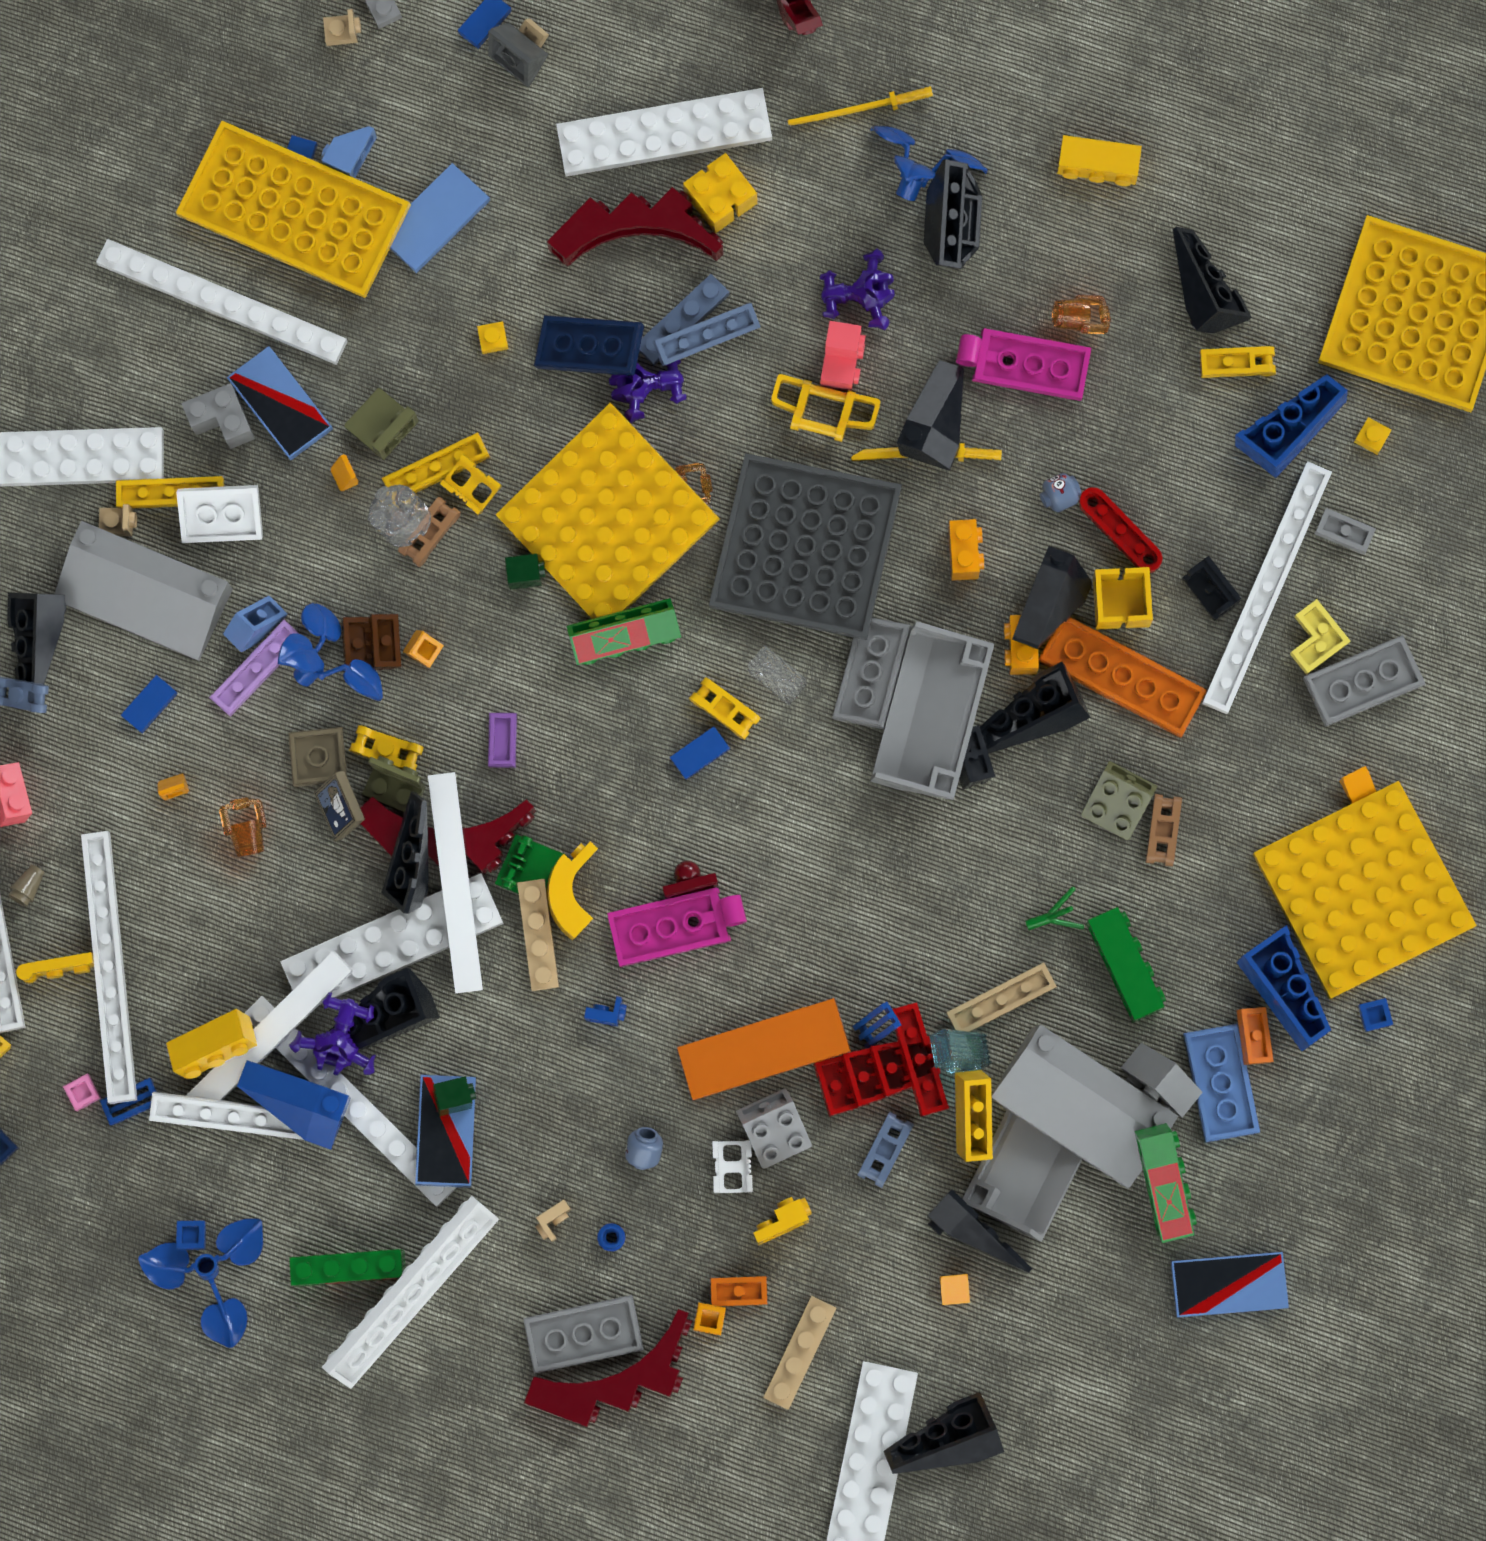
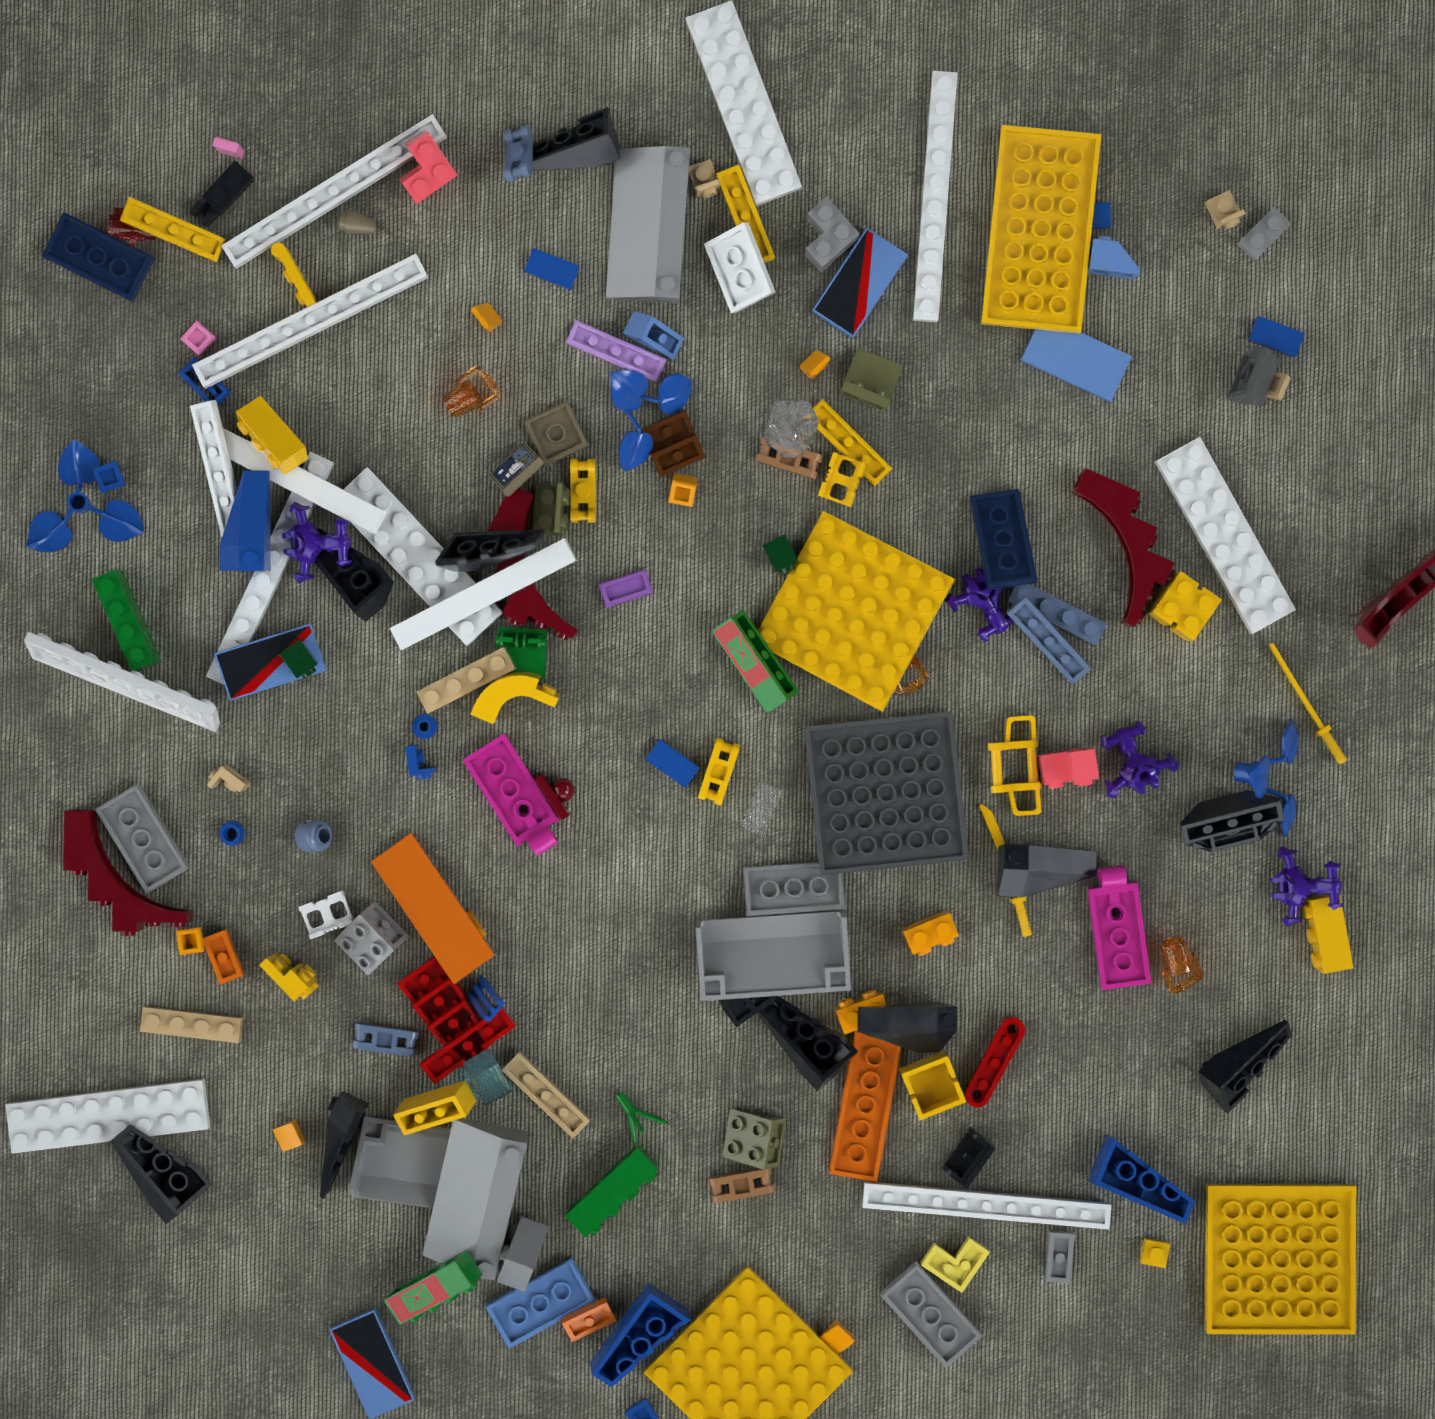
camera: 75 degrees right, 10 degrees up
(492, 337) = (983, 450): yellow plate -> none
(571, 1003) = (432, 726): none -> blue plate
(1041, 175) = (1296, 886): none -> dark purple piece
(1060, 492) = (1010, 999): sand blue head -> none
(1237, 362) = (1181, 1113): yellow plate -> none

